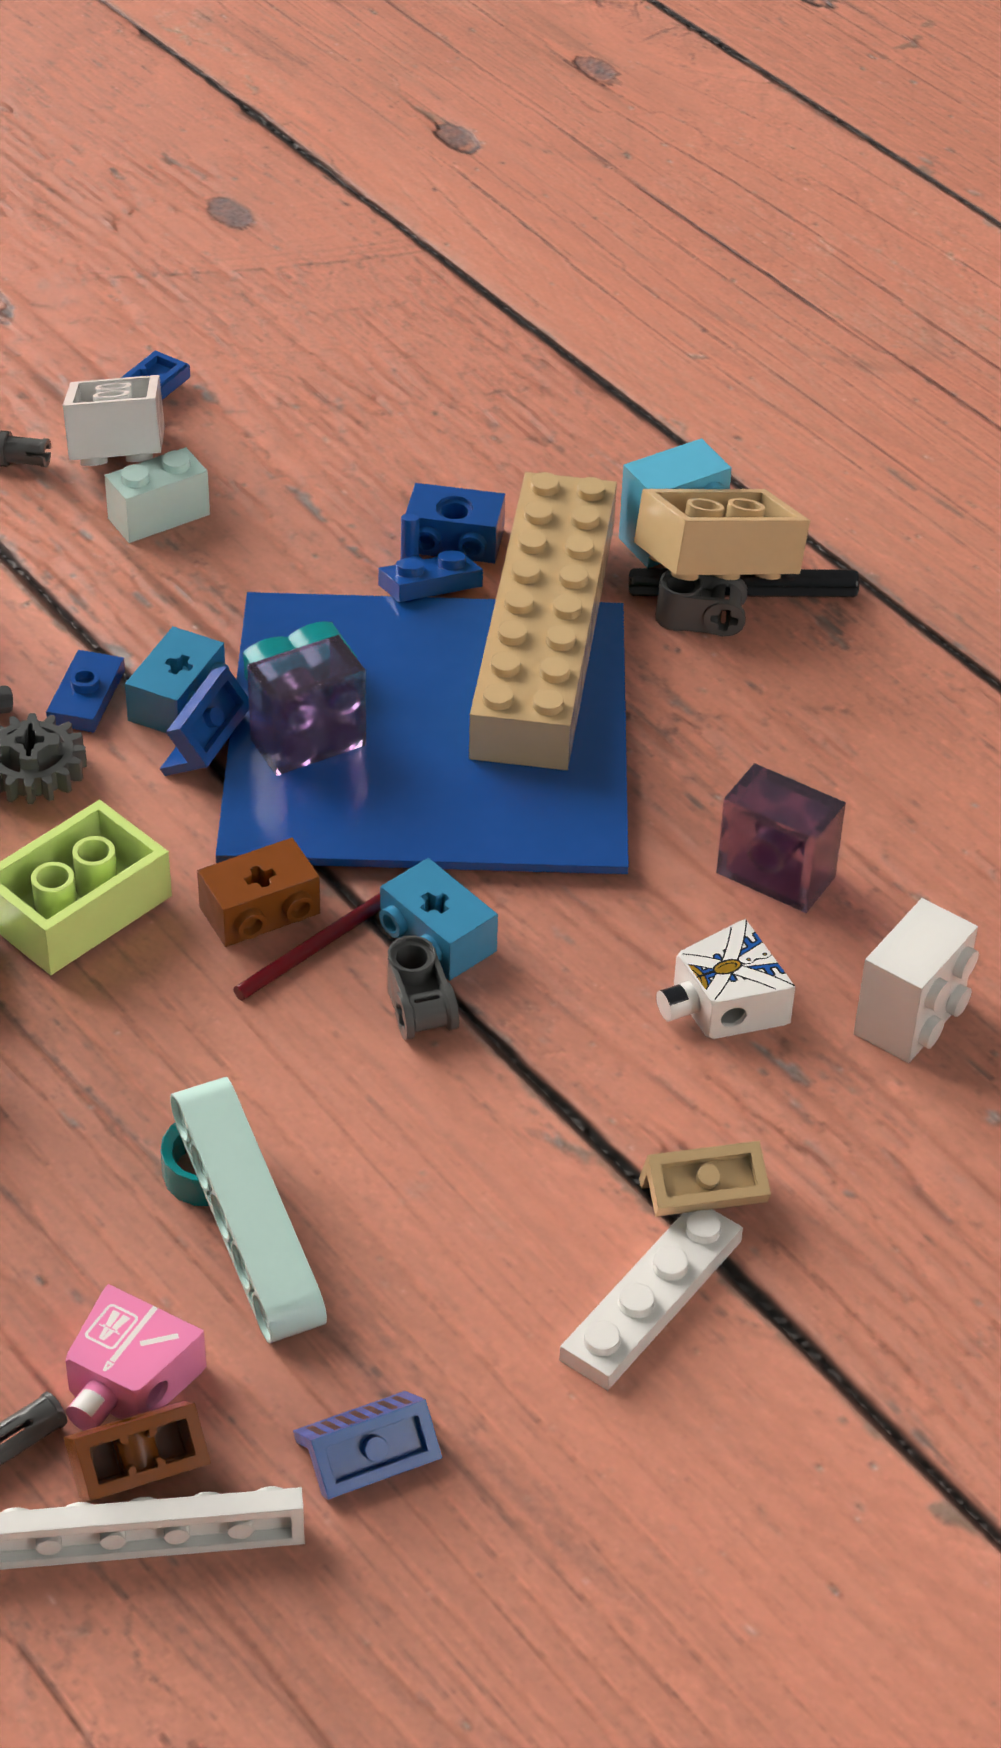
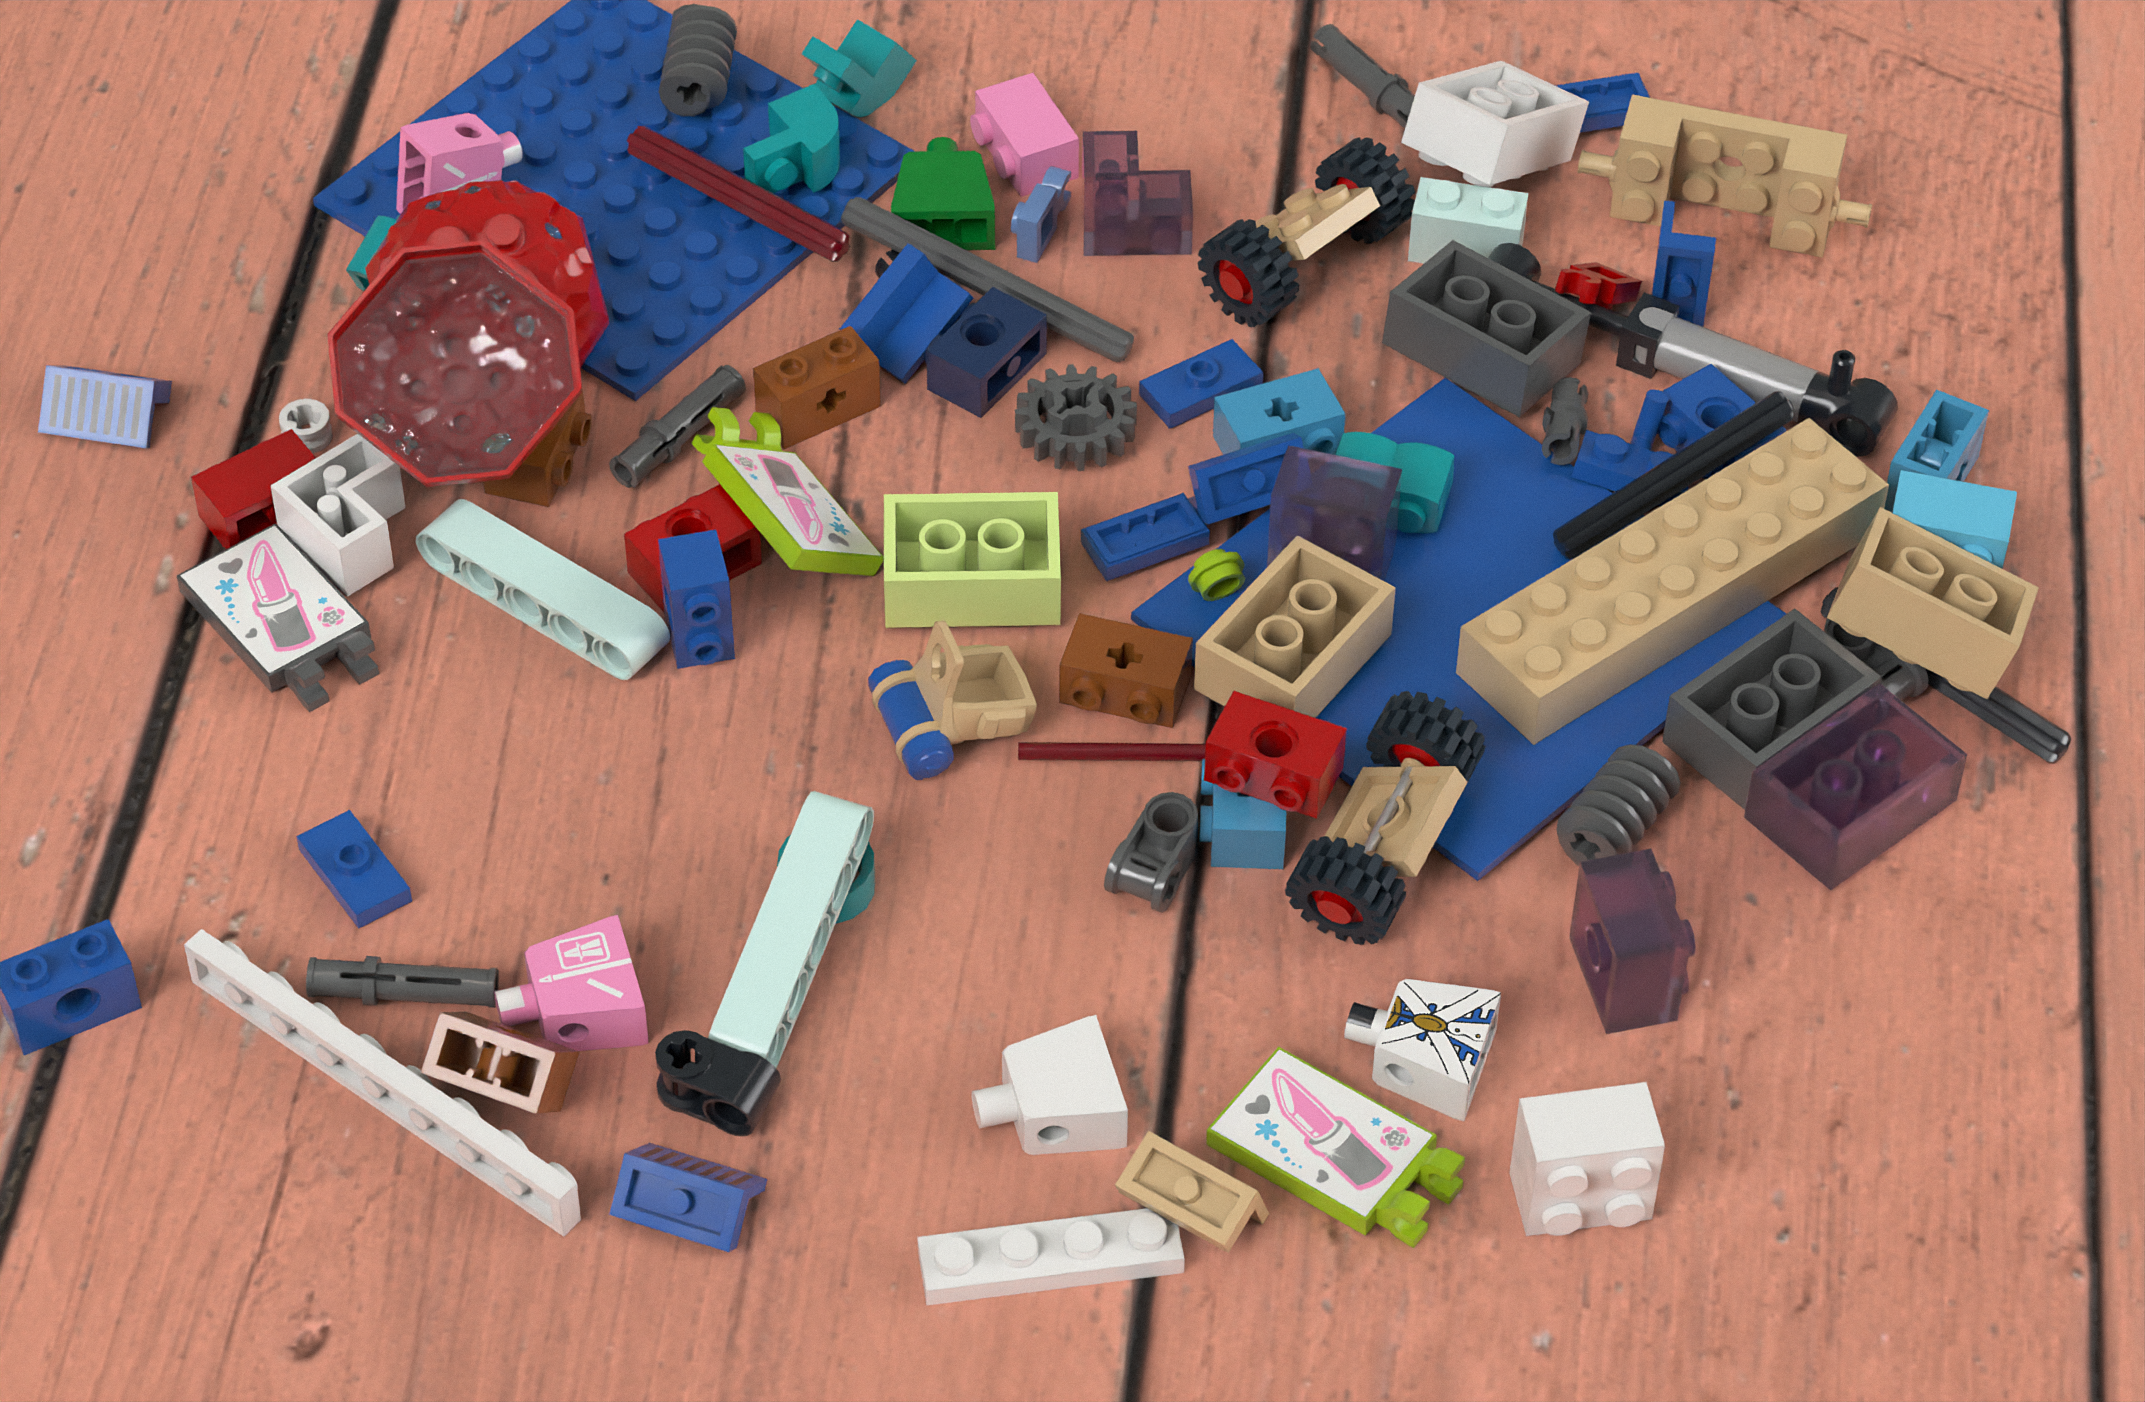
camera: 45 degrees right, 5 degrees up
(50, 582) = (1251, 257): none -> black plate
(165, 988) = (950, 699): none -> tan piece
(169, 801) = (1145, 536): none -> blue plate
(248, 543) = (1485, 327): none -> dark grey brick
(255, 790) = (1217, 574): none -> lime plate
(281, 483) = (1598, 284): none -> red plate
(307, 1349) = (721, 1085): none -> black piece
(330, 443) = (1683, 268): none -> blue panel
(331, 354) = (1676, 153): none -> tan brick
(357, 493) = (1659, 340): none -> piece
(357, 571) = (1565, 421): none -> dark grey pin
(364, 793) = (1296, 631): none -> tan brick
(447, 865) = (1274, 754): none -> red brick
(472, 558) = (1673, 475): none -> black axle
(542, 1182) = (1058, 1092): none -> white torso
(553, 863) = (1387, 819): none -> plate
(601, 449) = (1941, 442): none -> dark azure brick
(667, 773) = (1618, 804): none -> dark grey piece
(688, 657) = (1762, 701): none -> dark grey brick
(745, 1091) = (1335, 1148): none -> tile
(788, 669) = (1854, 786): none -> brick

